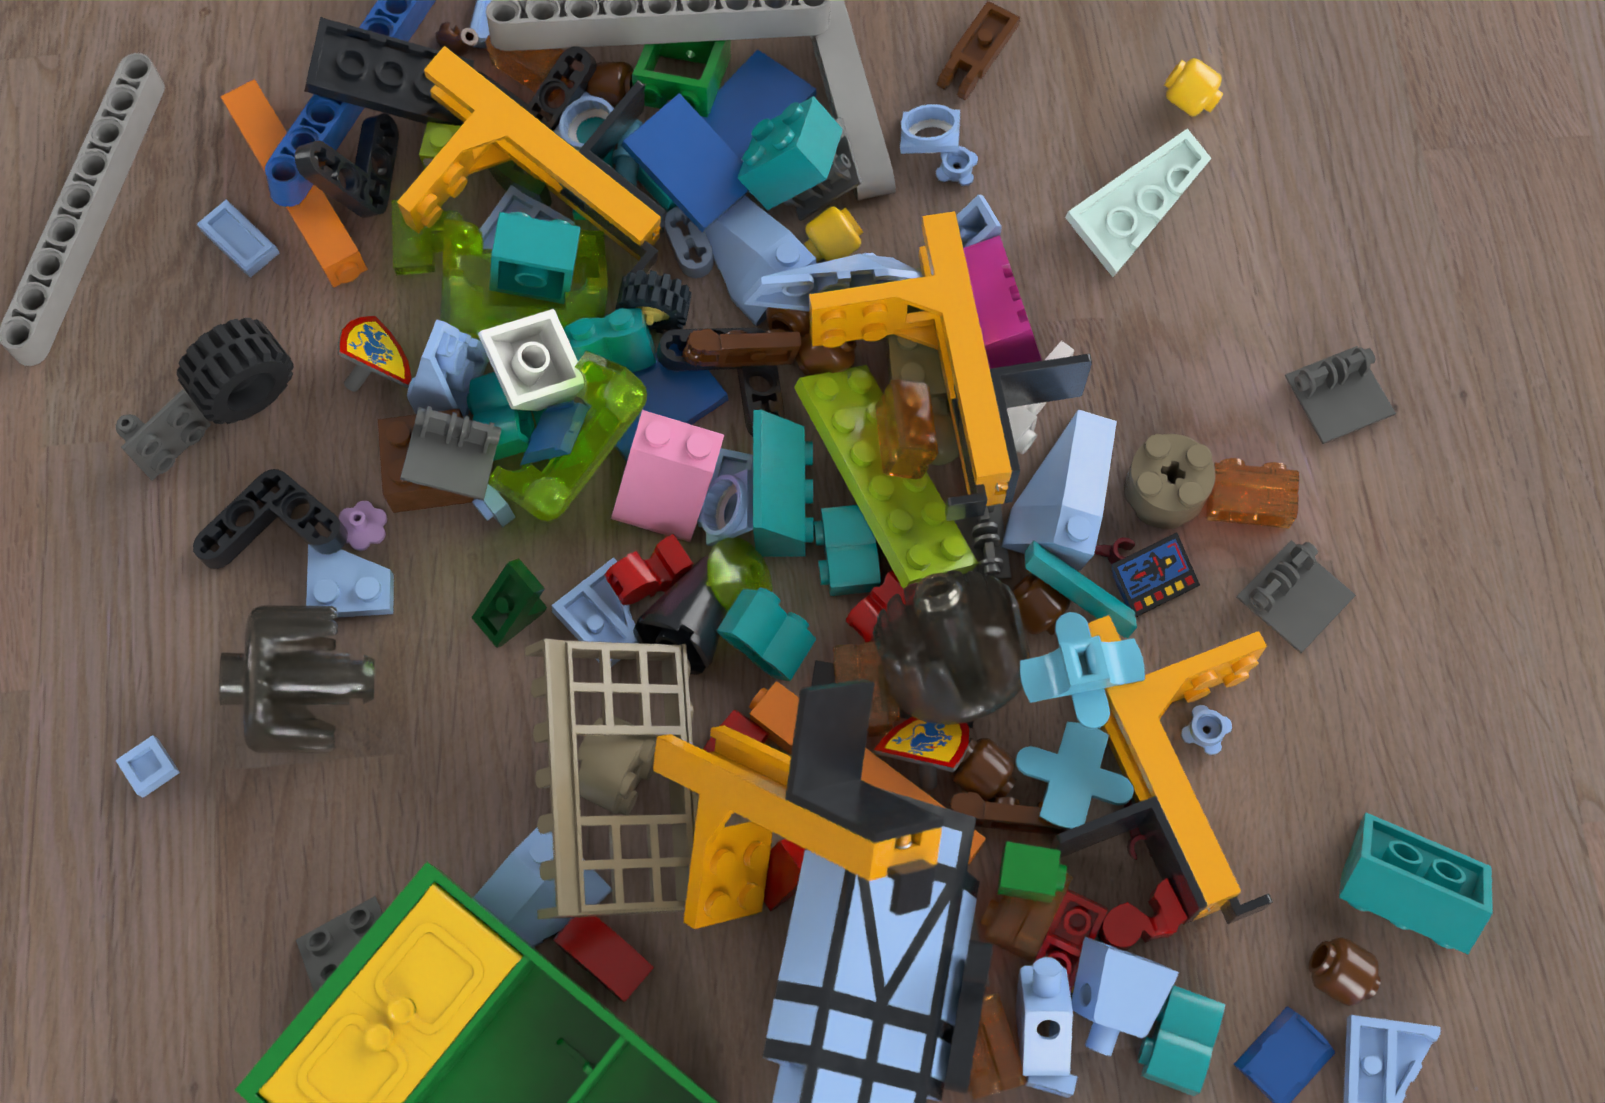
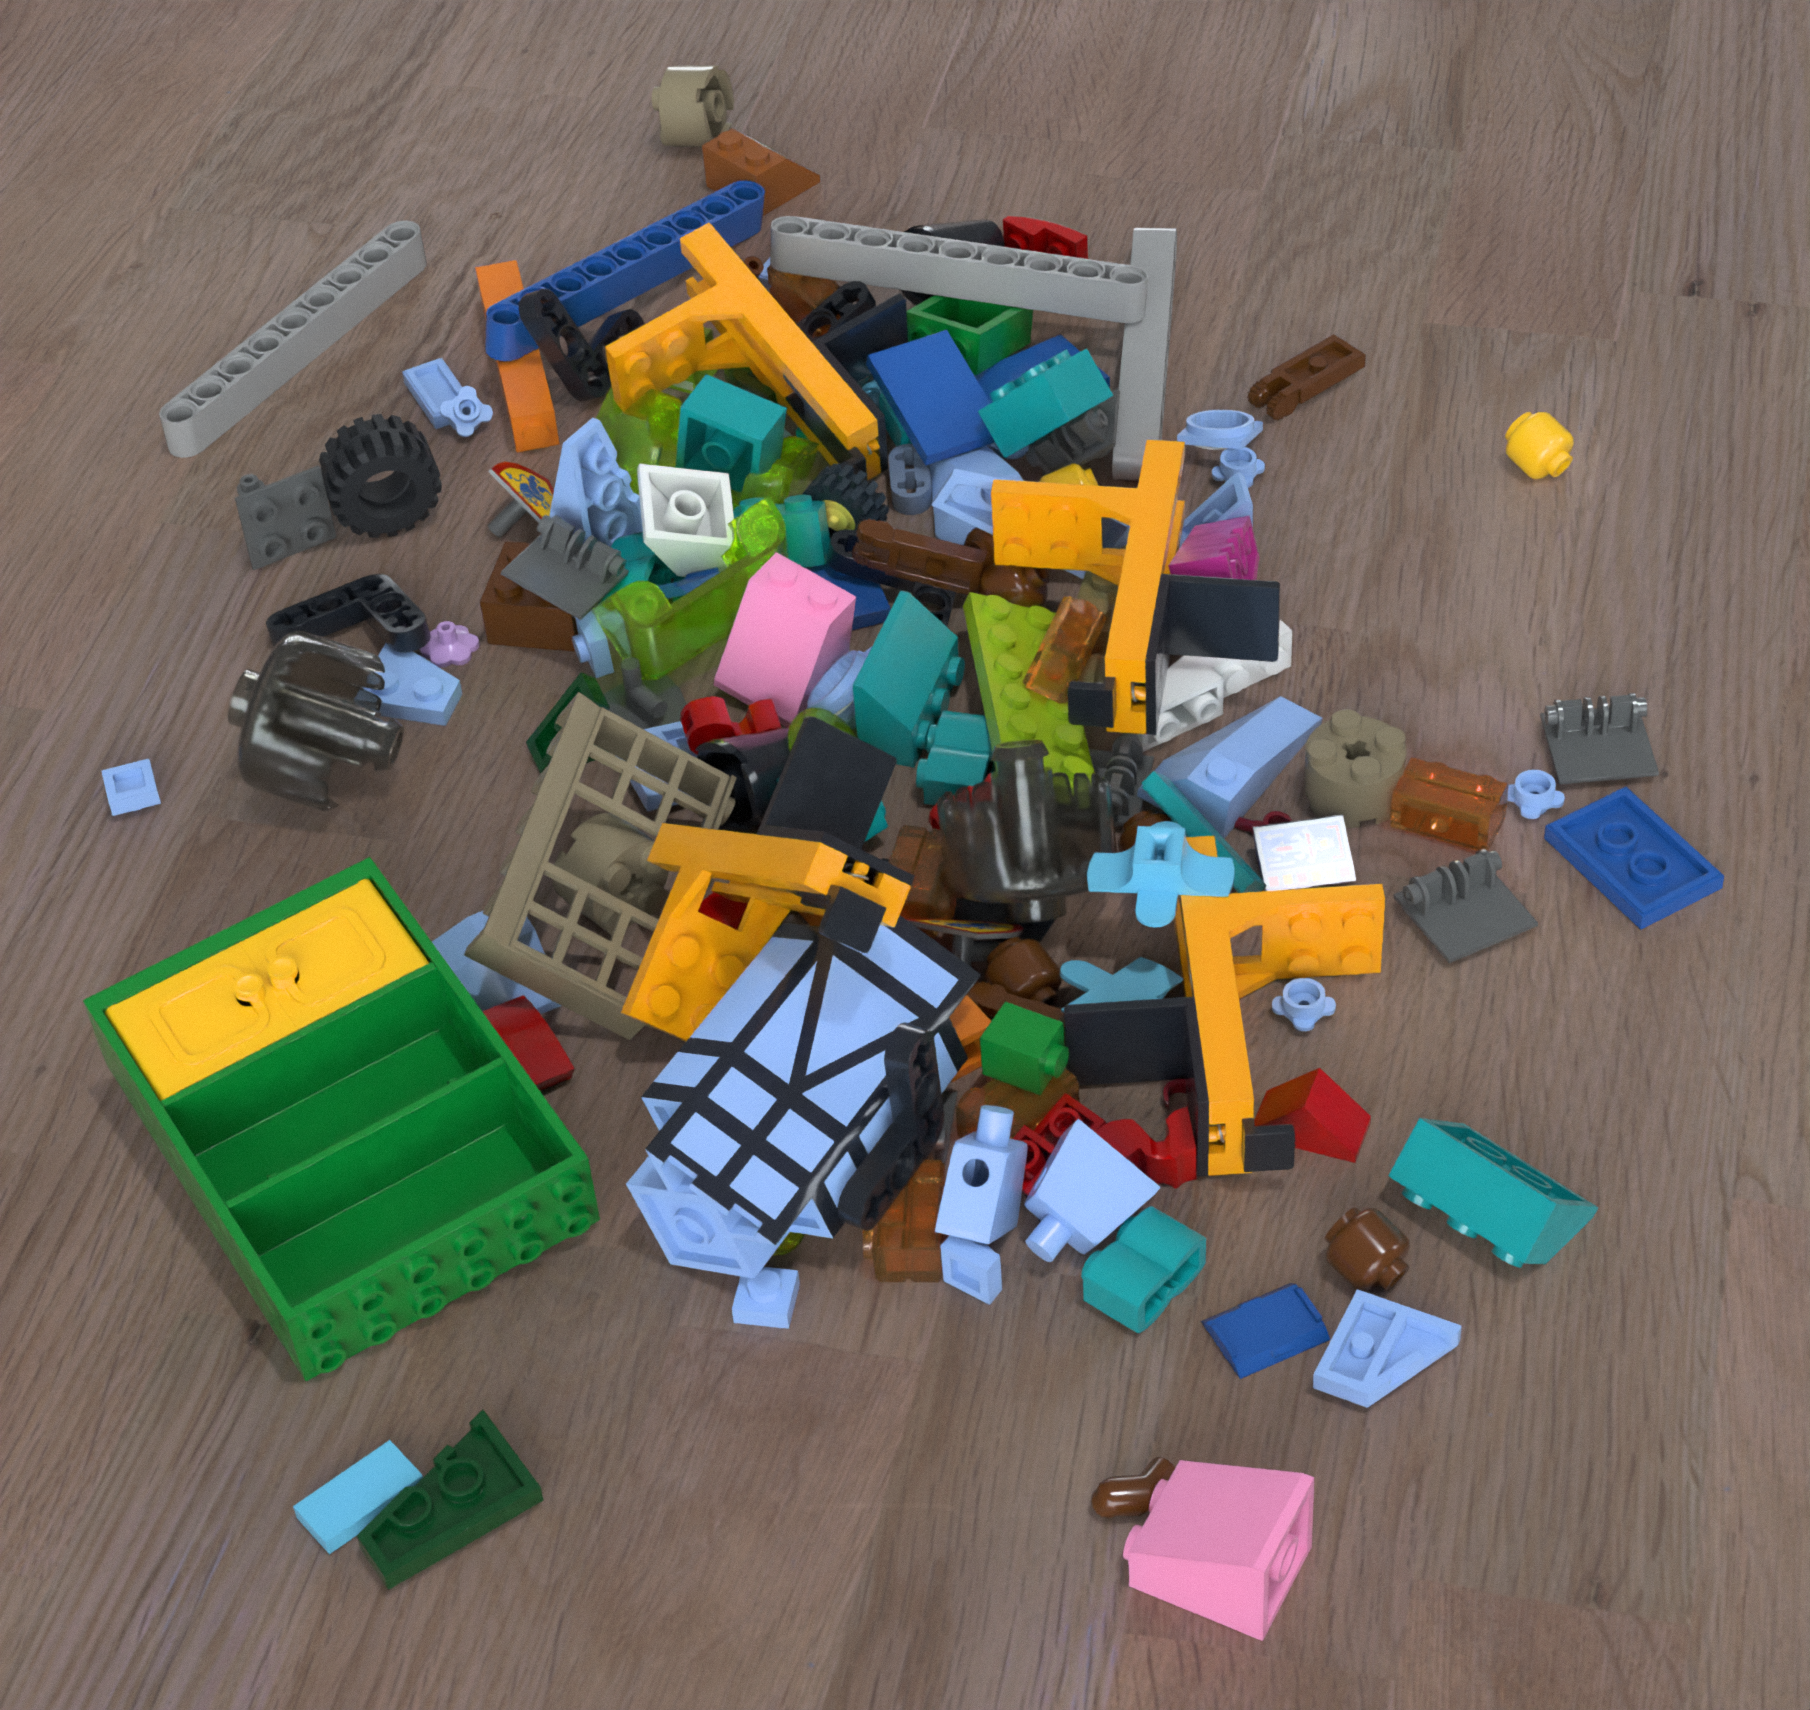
camera: 20 degrees right, 25 degrees down
(263, 262) = (466, 424): none -> light blue plate
(375, 73) = (630, 259): black piece -> none
(557, 553) = (645, 701): none -> dark grey shield
(1129, 207) = (1428, 533): light aqua wing -> none
(1257, 844) = (1321, 1113): none -> red slope
(1310, 451) = (1535, 793): none -> light blue plate
(1403, 504) = (1633, 857): none -> blue tile

